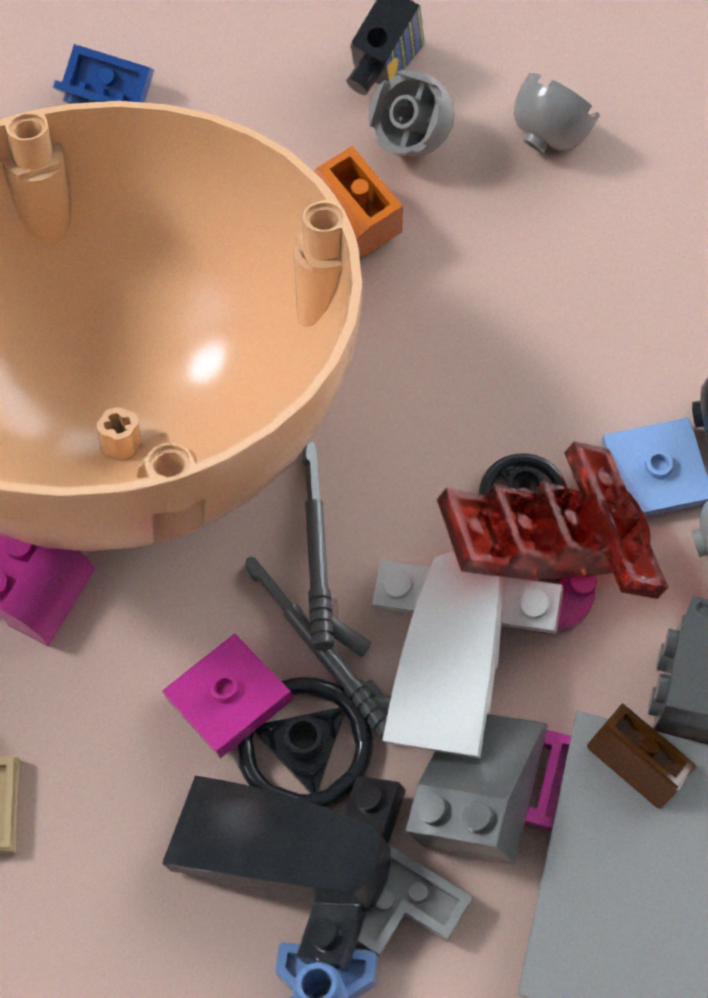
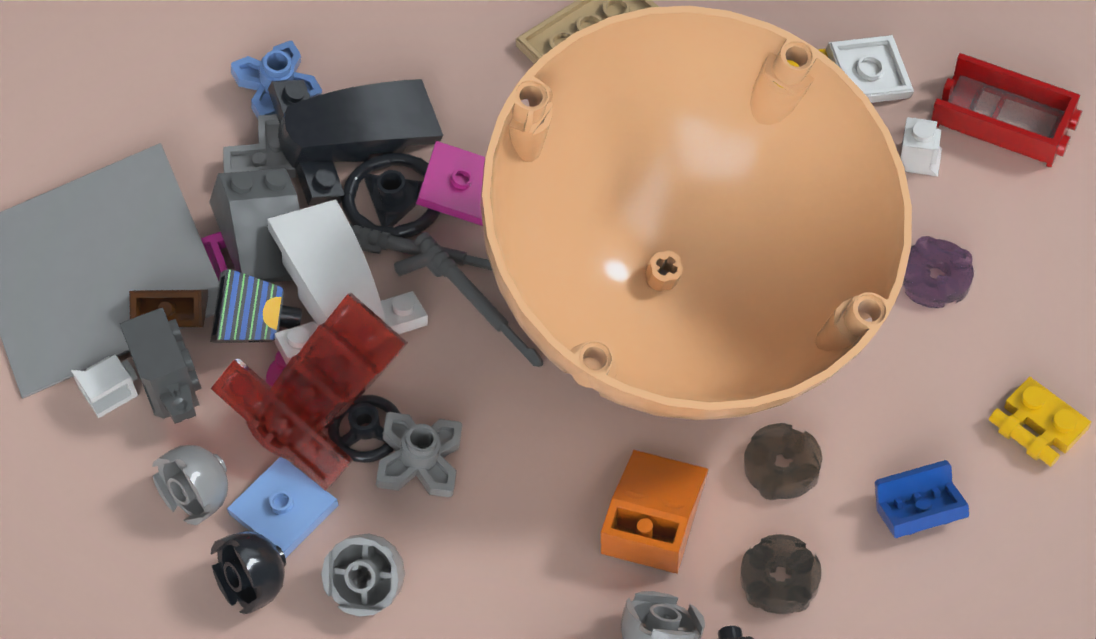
camera: 145 degrees right, 10 degrees down
(271, 90) = (773, 595): none -> clear smoke plate
(495, 423) = (420, 453): none -> light grey plant
(563, 679) = (250, 310): none -> torso
(631, 328) = (363, 574): none -> light grey cylinder

